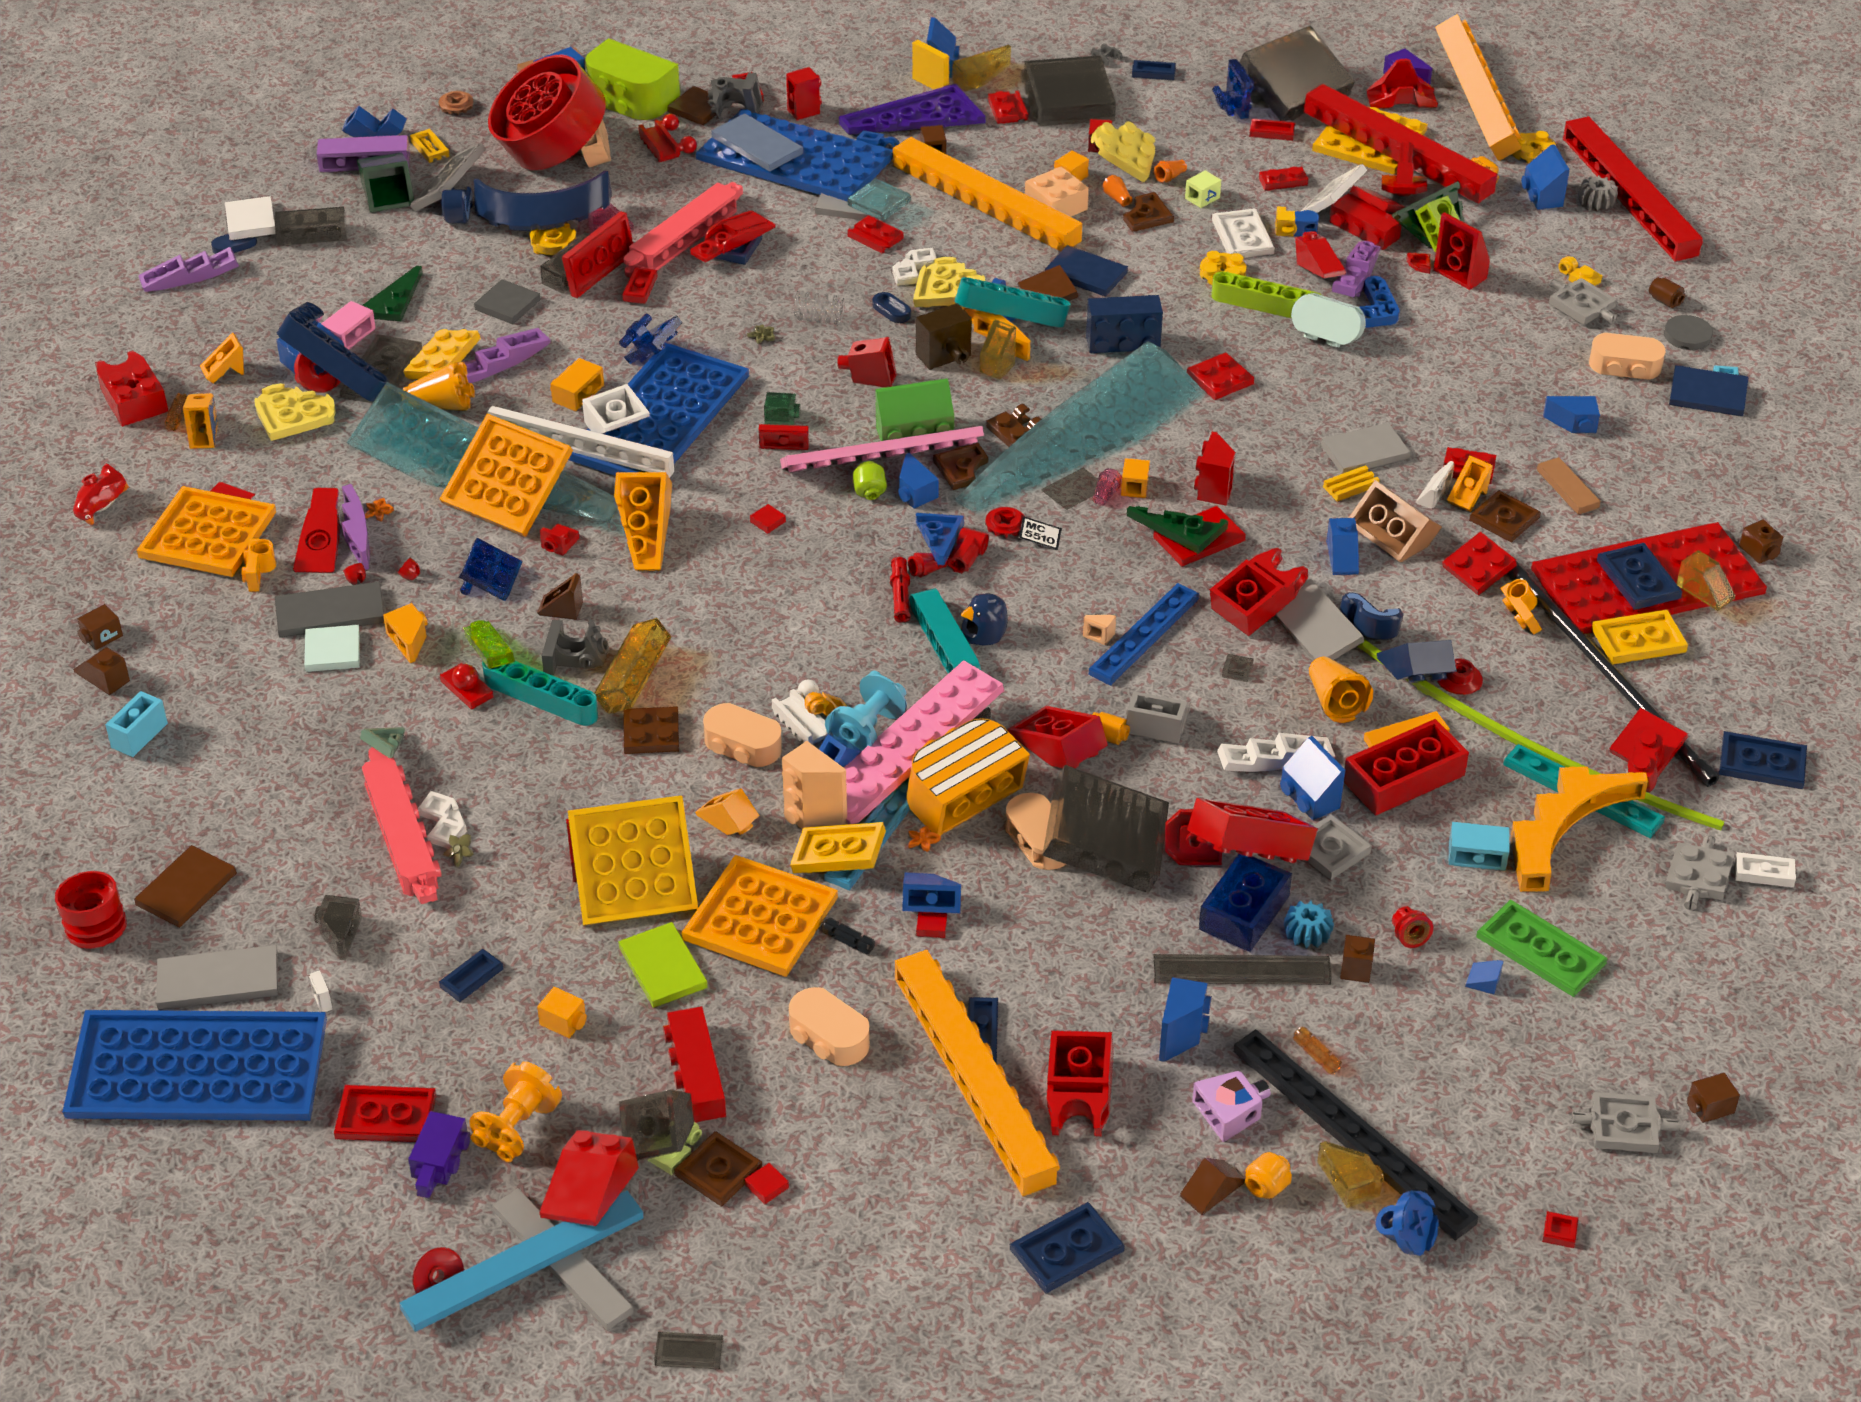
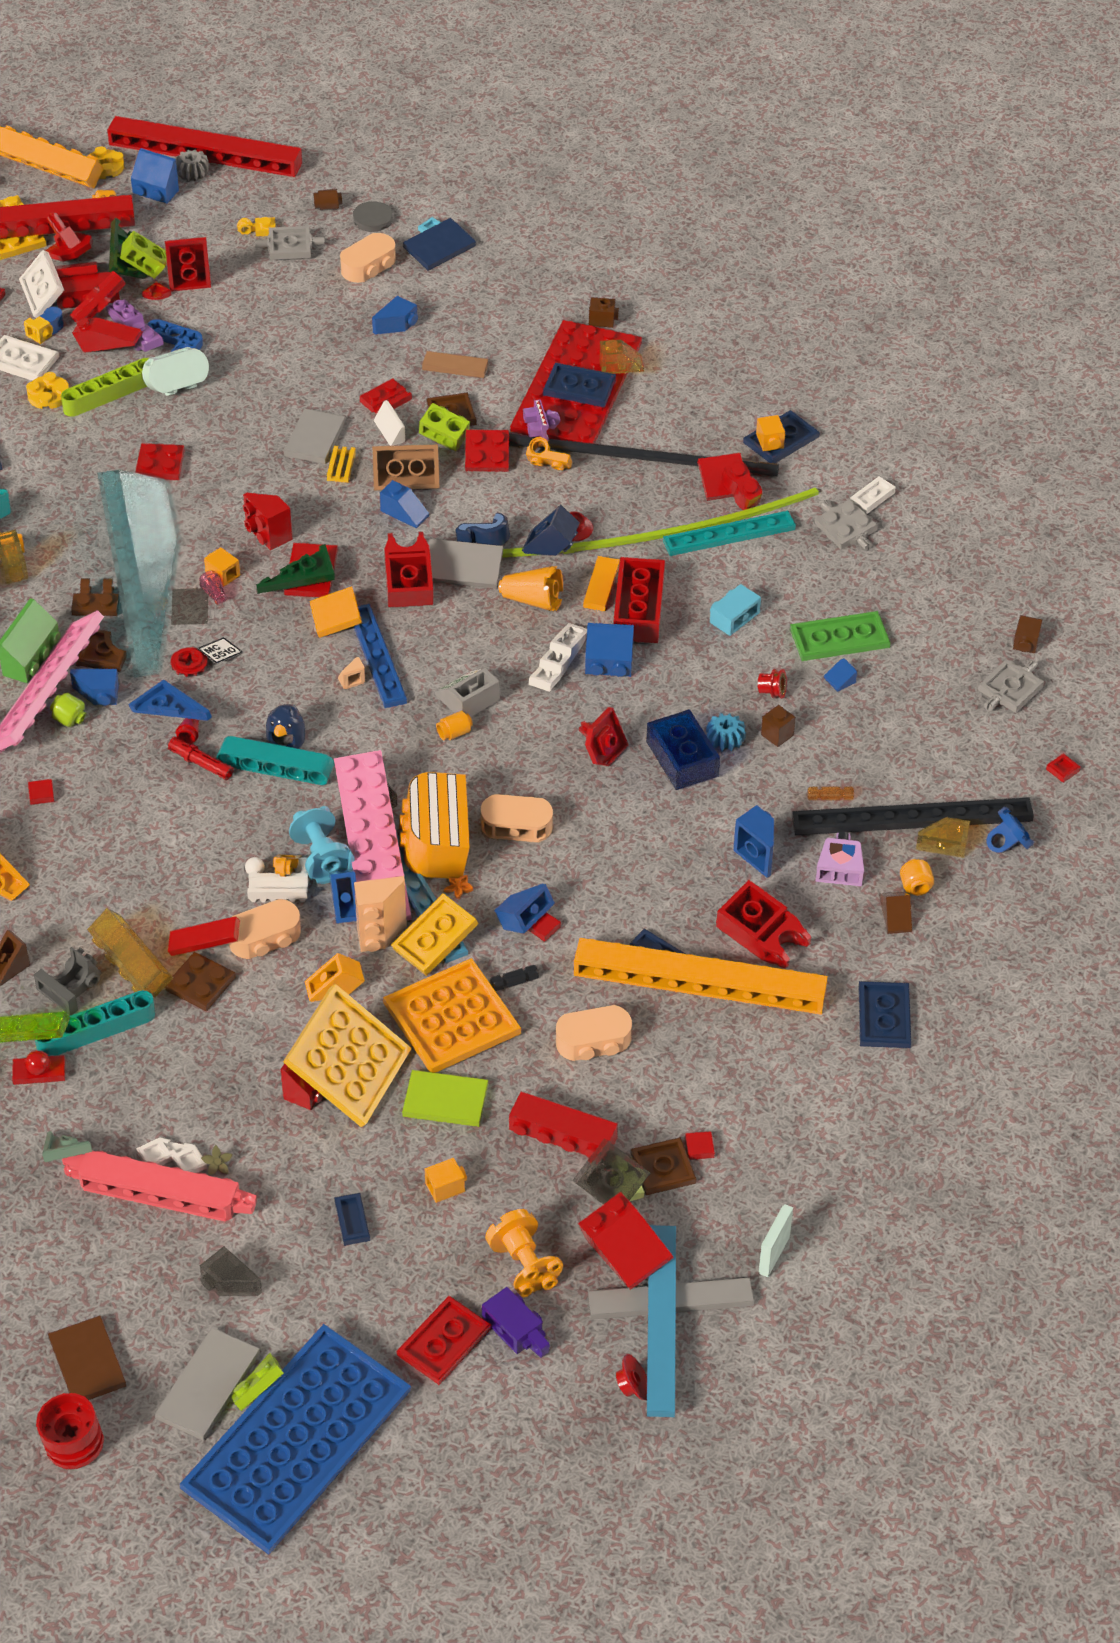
camera: 55 degrees left, 5 degrees up
(239, 1002) = (257, 1382): none -> lime wing
(320, 992) = (290, 1320): white tile -> none
(682, 1297) = (775, 1240): none -> light aqua tile
(689, 1350) = (809, 1266): clear smoke tile -> none
(693, 699) = (203, 936): none -> red tile
(968, 547) = (199, 692): red piece -> none
(1061, 735) = (438, 751): red slope -> none
(1106, 829) = (558, 779): clear smoke brick -> none
(1123, 323) = (61, 474): dark blue brick -> none
(1162, 576) = (335, 612): none -> light orange tile
(1237, 667) = (458, 628): clear smoke tile -> none
(1243, 969) = (729, 790): clear smoke tile -> none
(1251, 830) = (639, 704): red brick -> none
(1336, 847) = (667, 680): light grey plate -> none
(1356, 229) = (98, 298): none -> red piece
(1470, 484) = (411, 405): light orange slope -> none
(1470, 515) = (442, 431): none -> lime brick
(1553, 573) = (540, 420): none -> medium lavender hips
(1556, 813) = (746, 559): light orange arch -> none
(1639, 637) = (627, 421): yellow plate -> none
(1745, 742) = (770, 433): none -> light orange brick

